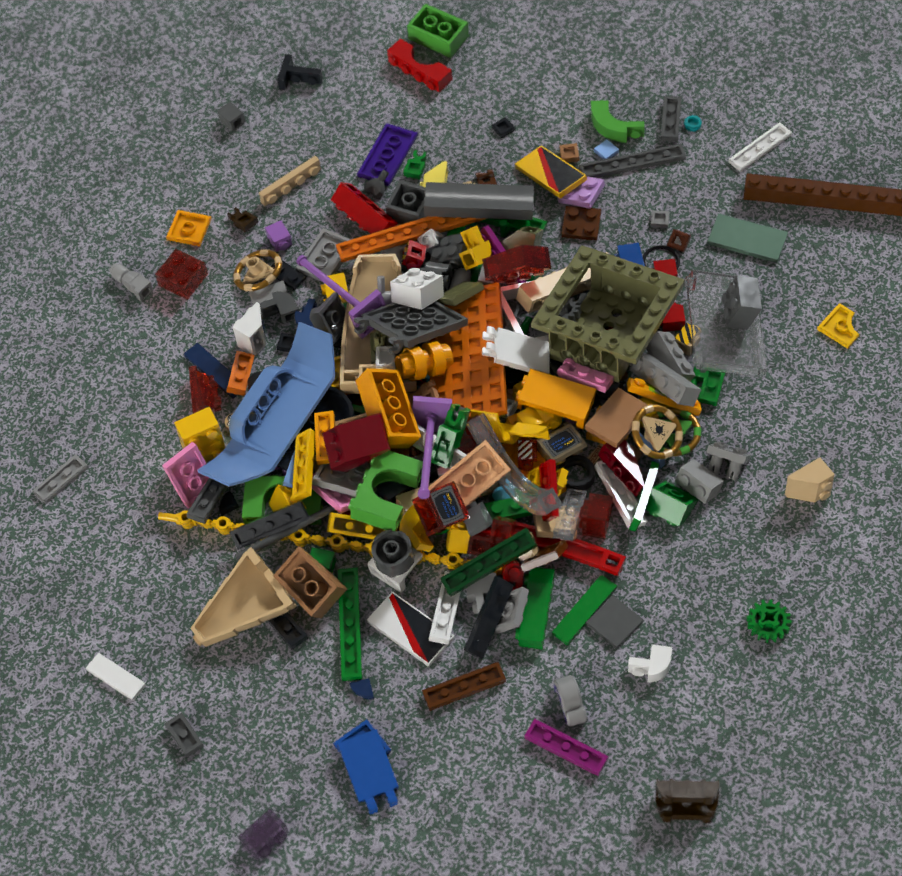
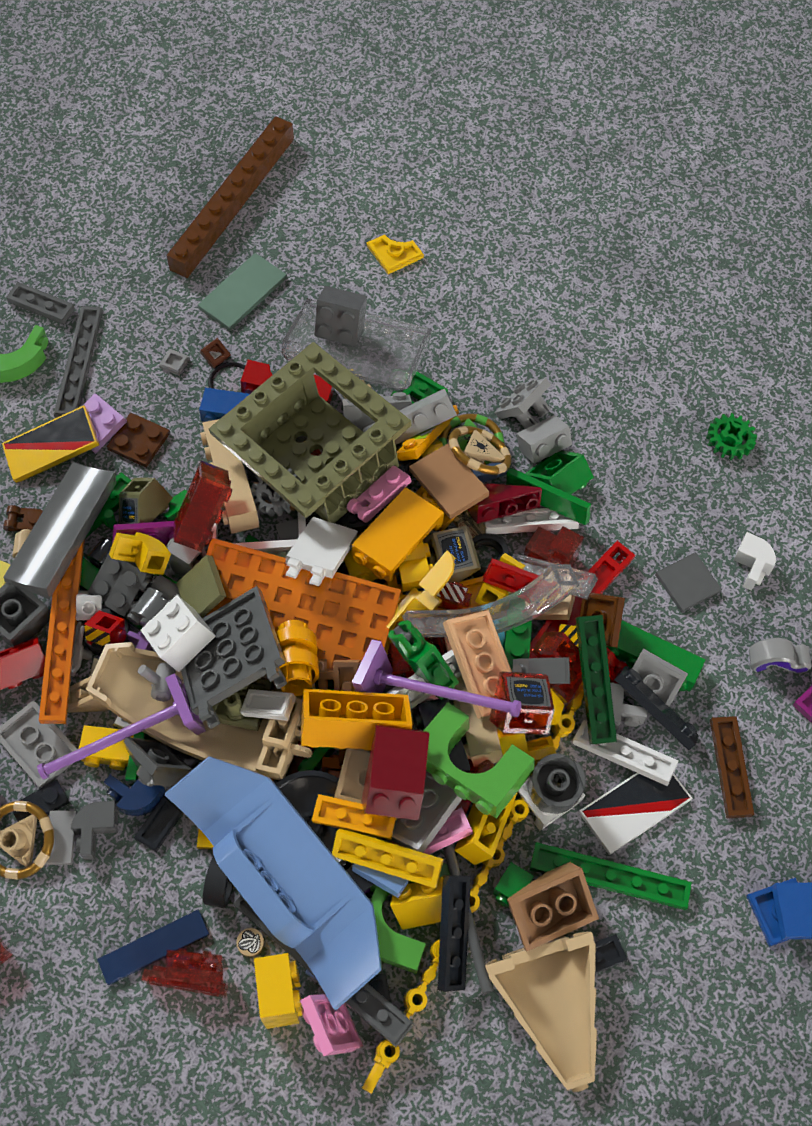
camera: 80 degrees left, 5 degrees up
(240, 373) = (181, 910): orange plate -> none
(251, 330) = (124, 873): white slope -> none
(362, 688) = (703, 887): dark blue tile -> none
(569, 152) = (30, 417): medium nougat plate -> none
(584, 610) = (664, 607): green tile -> none
(606, 150) = (47, 380): light blue tile -> none
(692, 123) = (58, 286): teal tile -> none
(760, 147) = (127, 239): white tile -> none
(810, 482) = (585, 336): tan slope -> none

